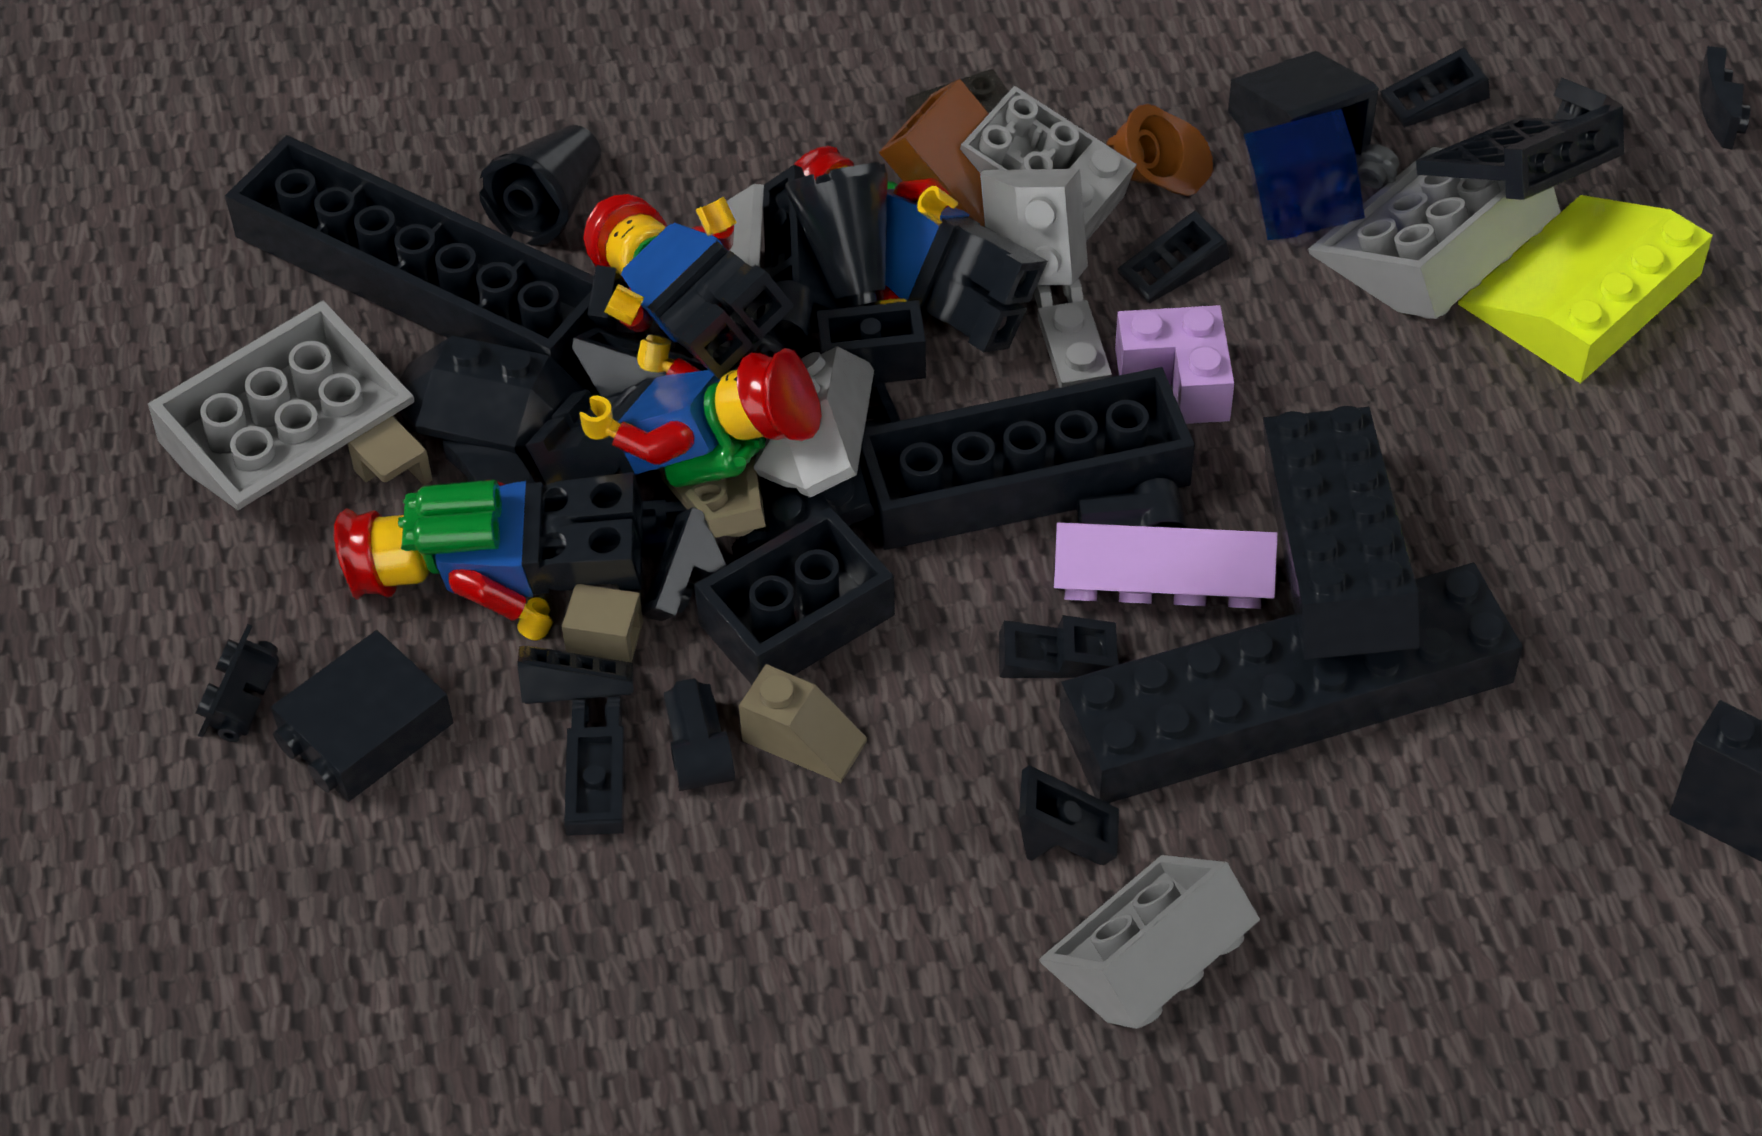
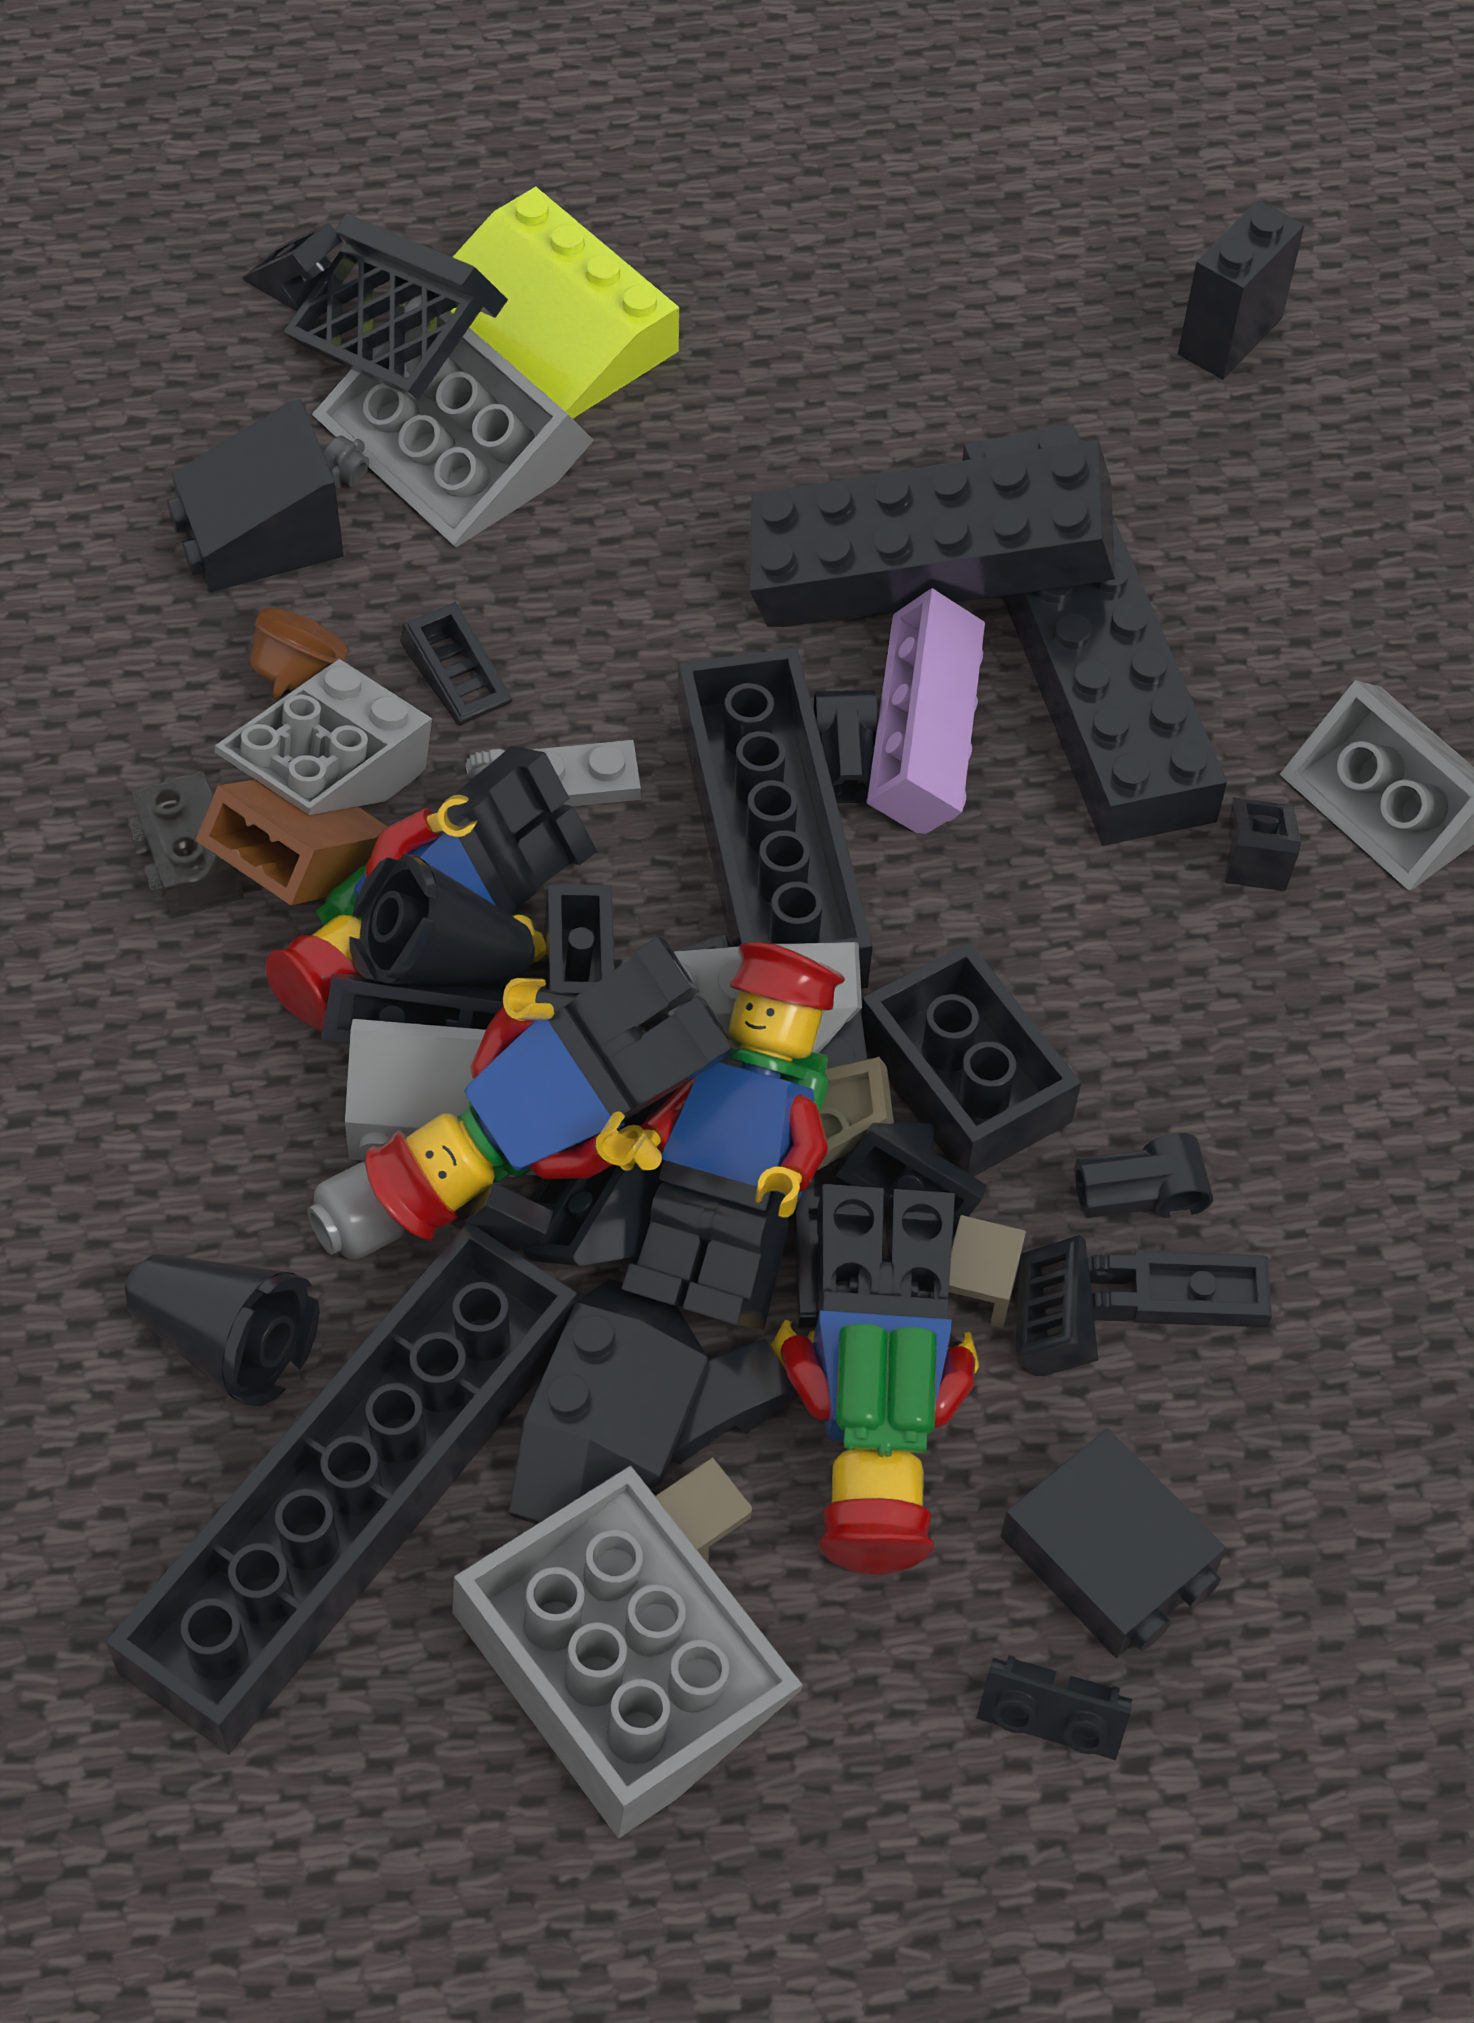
camera: 90 degrees left, 5 degrees up
(799, 724) = (1127, 1082): dark tan slope -> none
(1040, 214) = (425, 750): light grey slope -> none
(1061, 652) = (1020, 833): black slope -> none
(1190, 349) = (626, 657): lavender brick -> none
(1305, 175) = (392, 503): clear blue brick -> none
(1471, 90) = (219, 358): black slope -> none
(1722, 98) = (313, 161): black slope -> none

